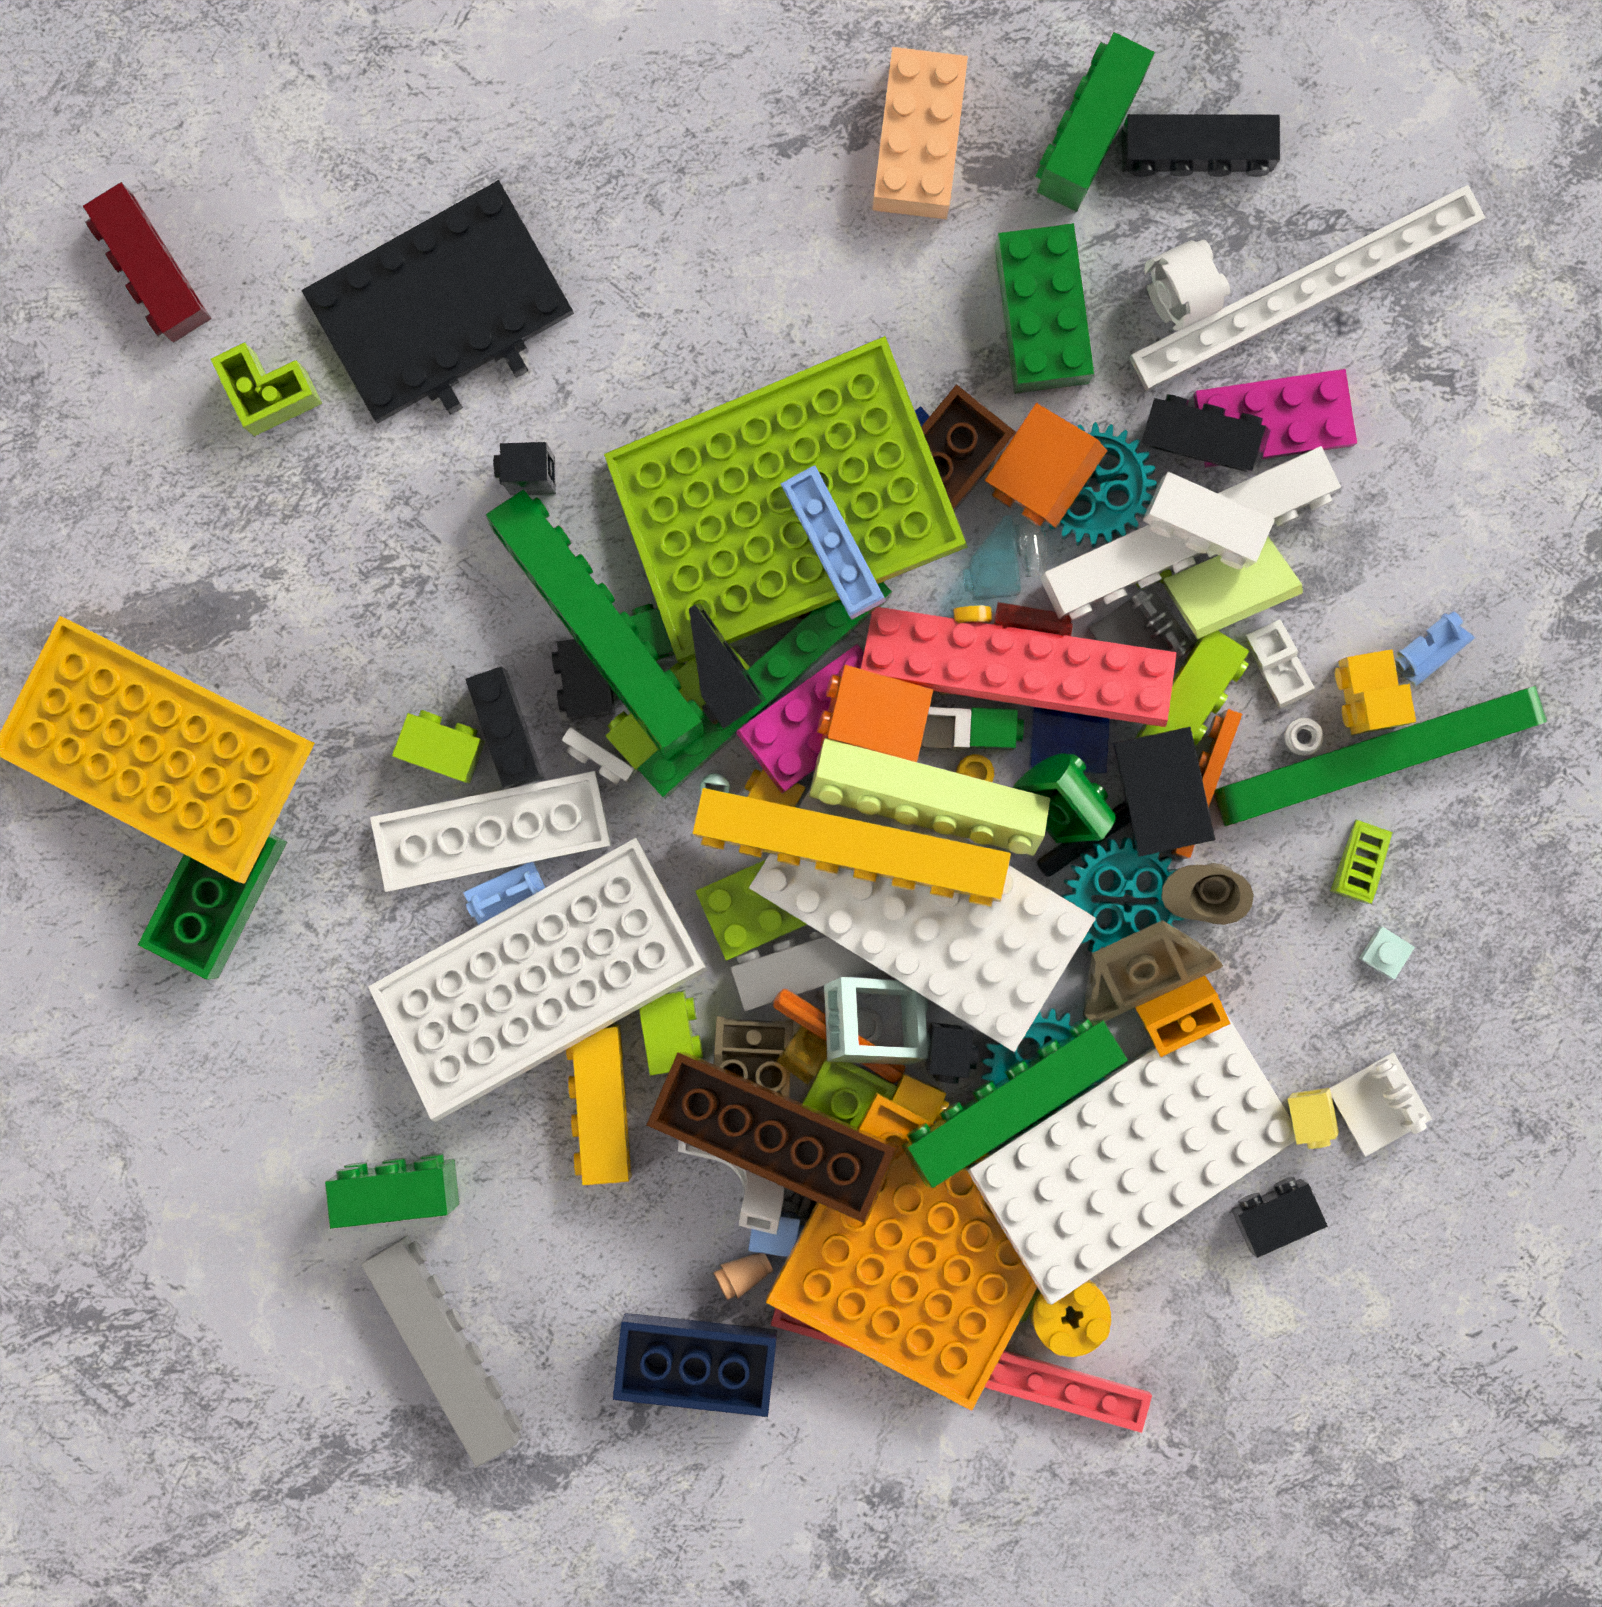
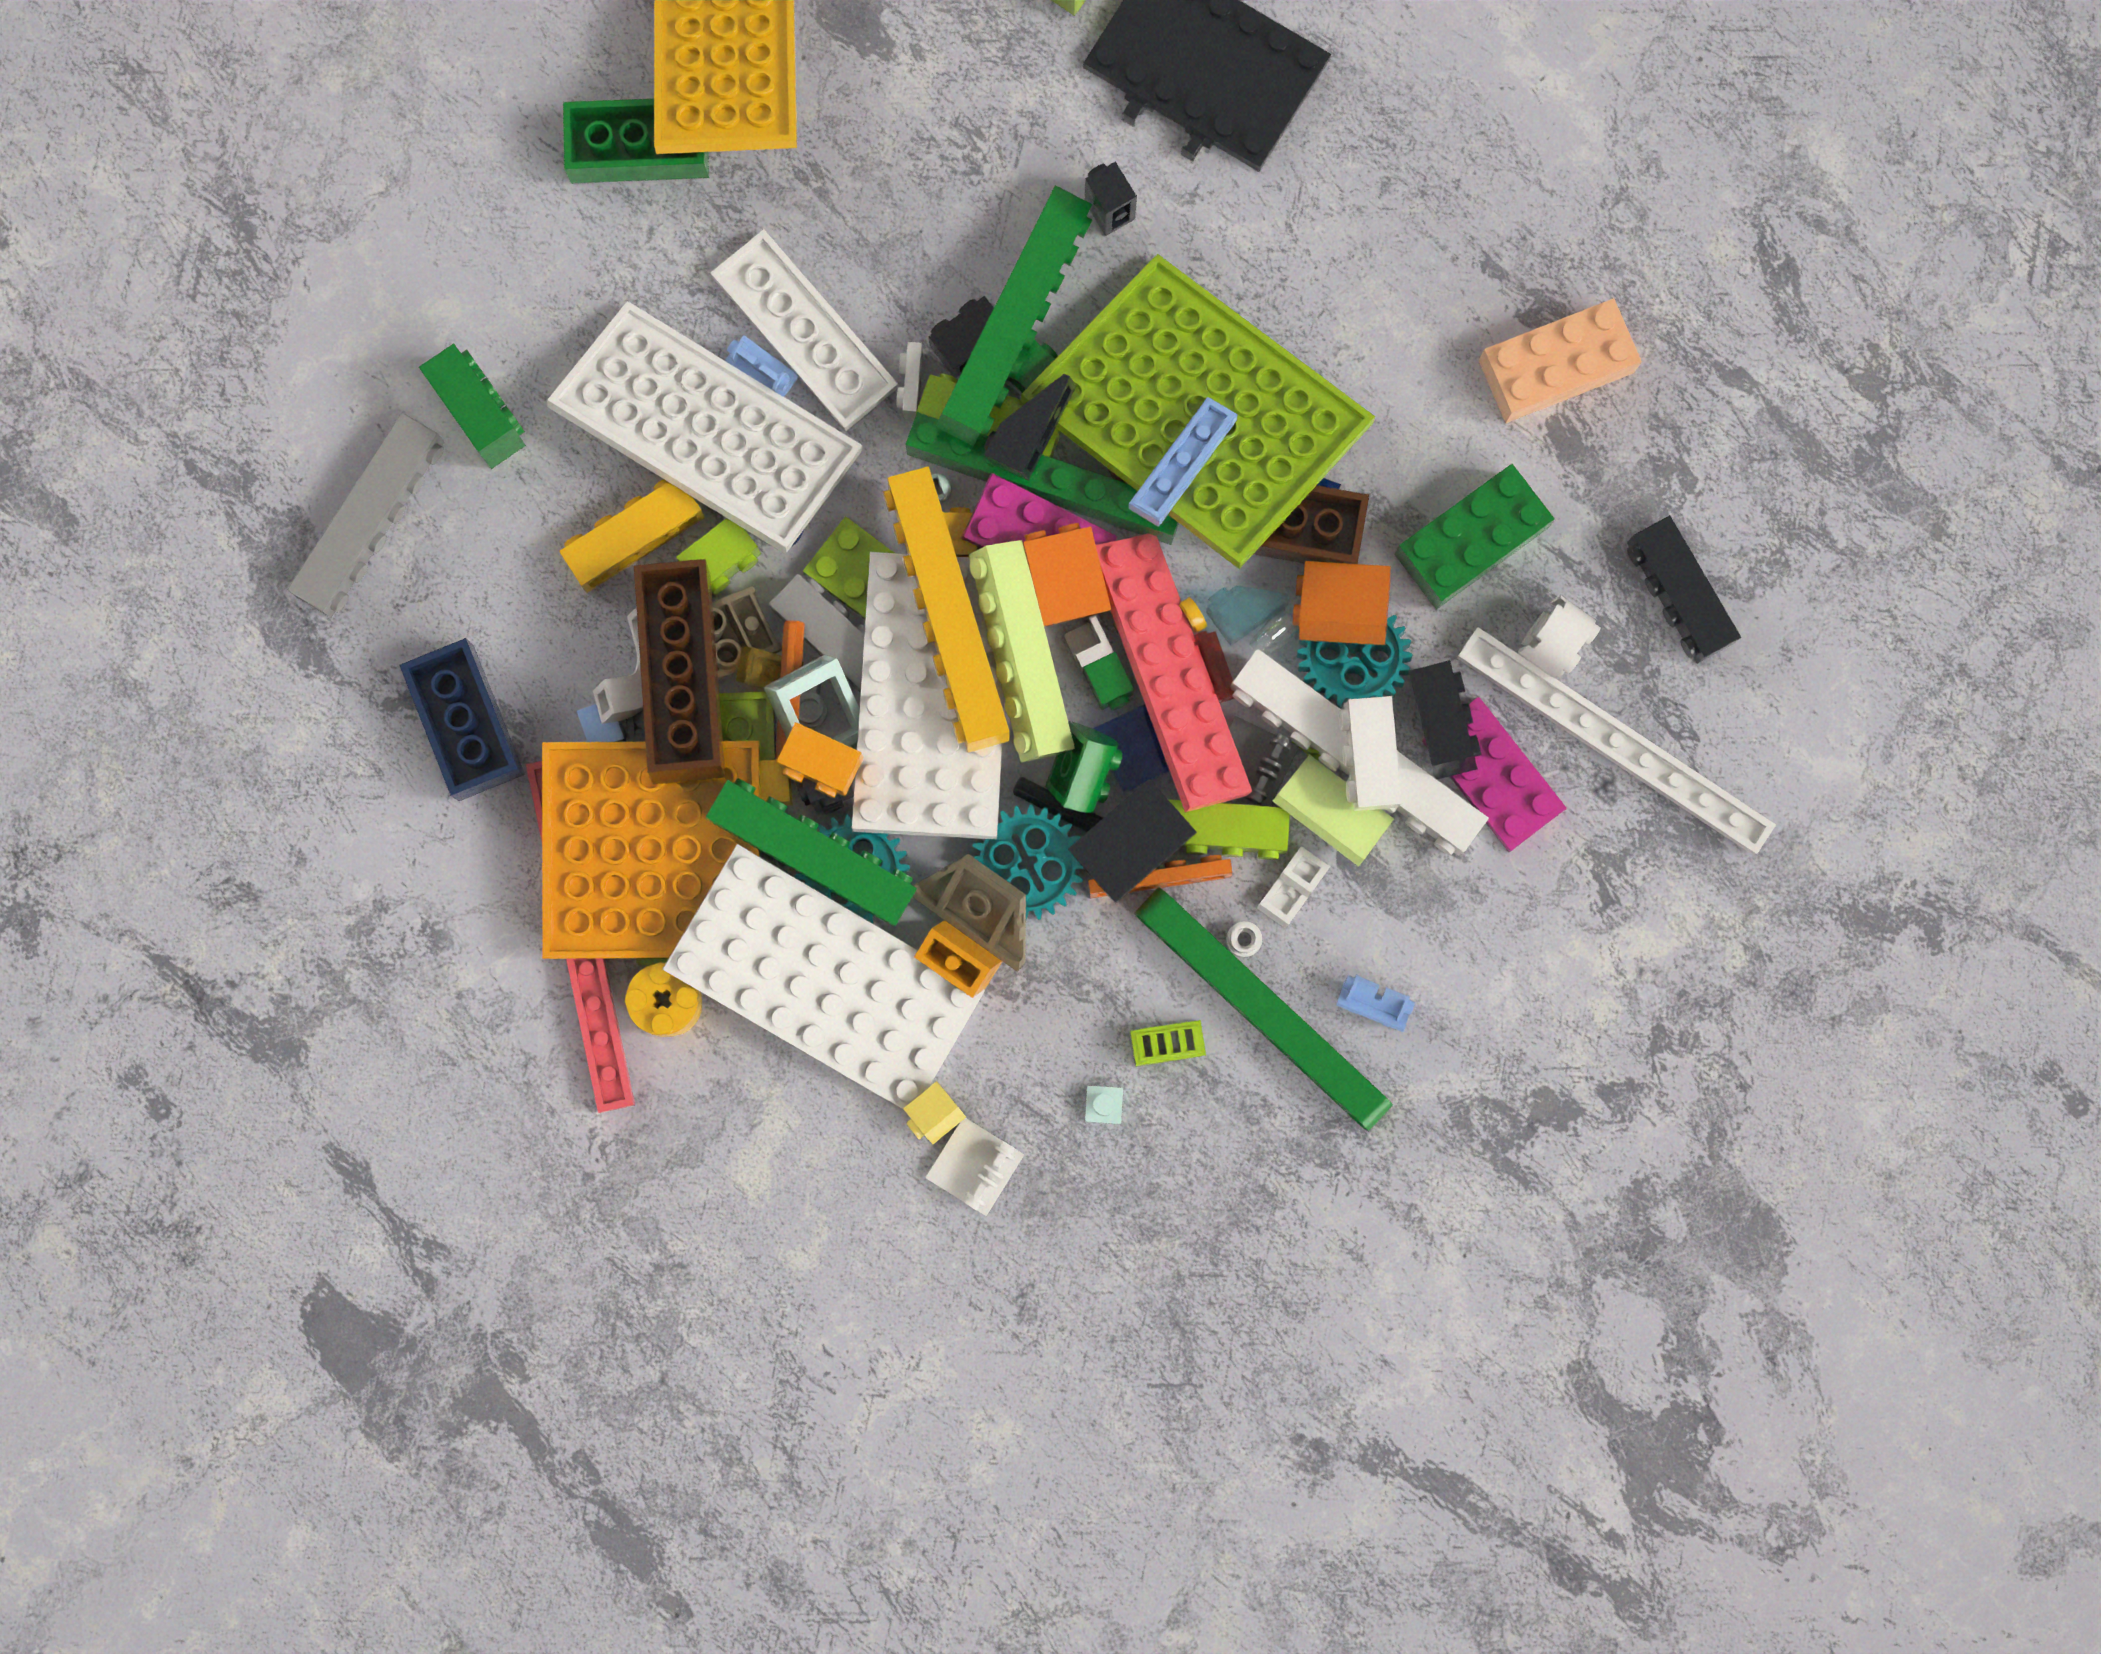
camera: 60 degrees right, 5 degrees down
(438, 747) = (848, 251): lime brick -> none
(504, 728) = (893, 294): black brick -> none
(742, 1274) = (554, 720): light nougat cone -> none
(937, 1049) = (819, 760): none -> light orange brick
(977, 767) = (1070, 687): yellow tile -> none
(1092, 120) = (1648, 491): green brick -> none
(1208, 894) = (1069, 924): dark tan piece -> none
(1278, 1216) = (836, 1130): black brick -> none
(1373, 693) = (1311, 972): yellow brick -> none

